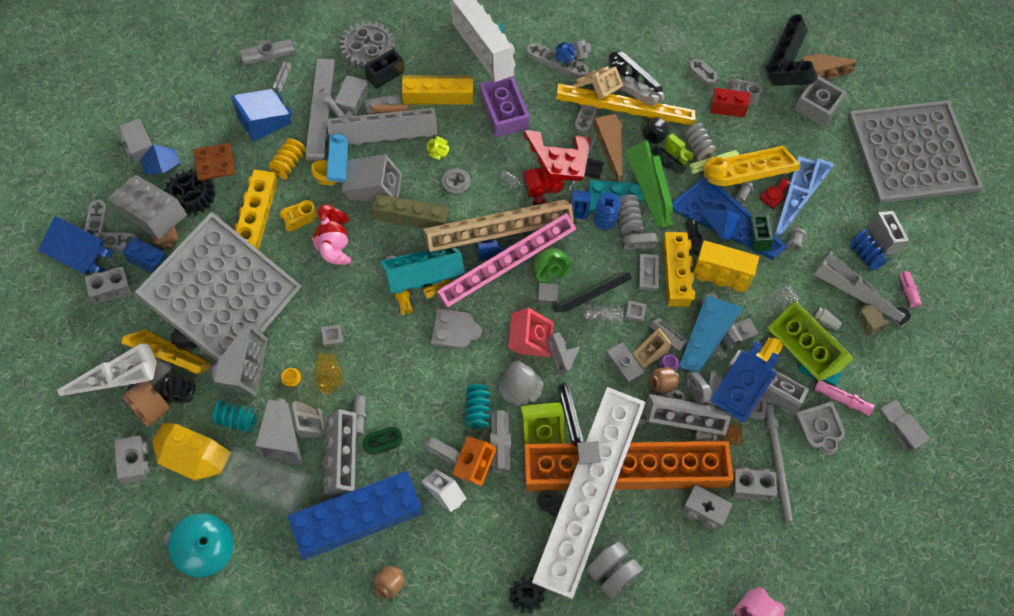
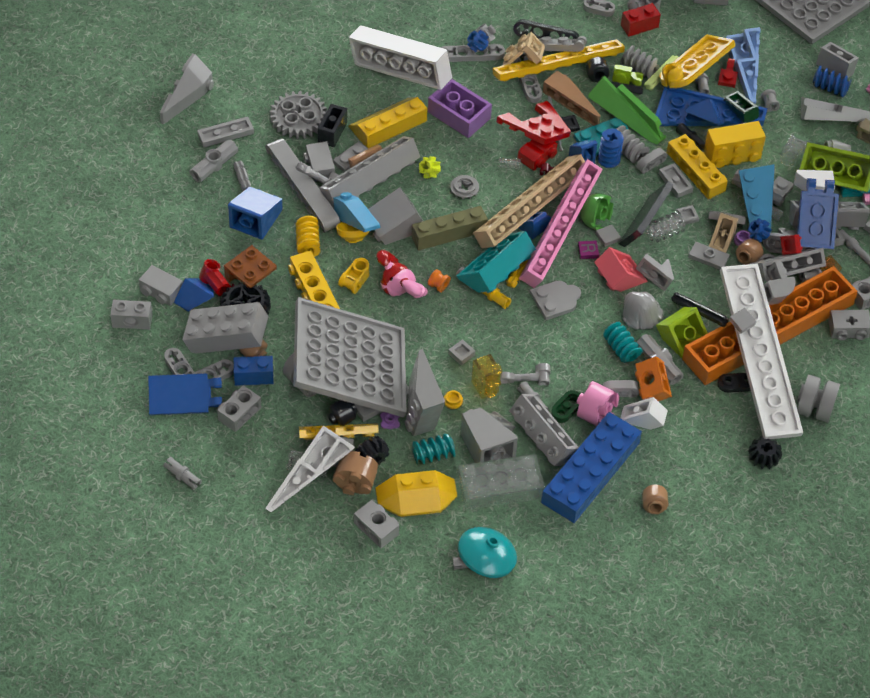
camera: 30 degrees left, 10 degrees down
(19, 318) = (182, 473): none -> light grey pin
(92, 153) = (131, 314): none -> light grey brick
(182, 156) = (211, 275): none -> red piece
(297, 31) = (225, 131): none -> light grey plate
(364, 257) = (439, 280): none -> orange wheel
(383, 398) = (541, 375): none -> light grey brick
(405, 455) = (596, 403): none -> bright pink brick
(519, 297) = (588, 249): none -> magenta tile
(654, 438) = (780, 285): none -> light grey brick
(684, 364) = (759, 230): none -> blue gear
(700, 397) = (791, 244): none -> red tile
(774, 343) = (820, 176): none -> white slope

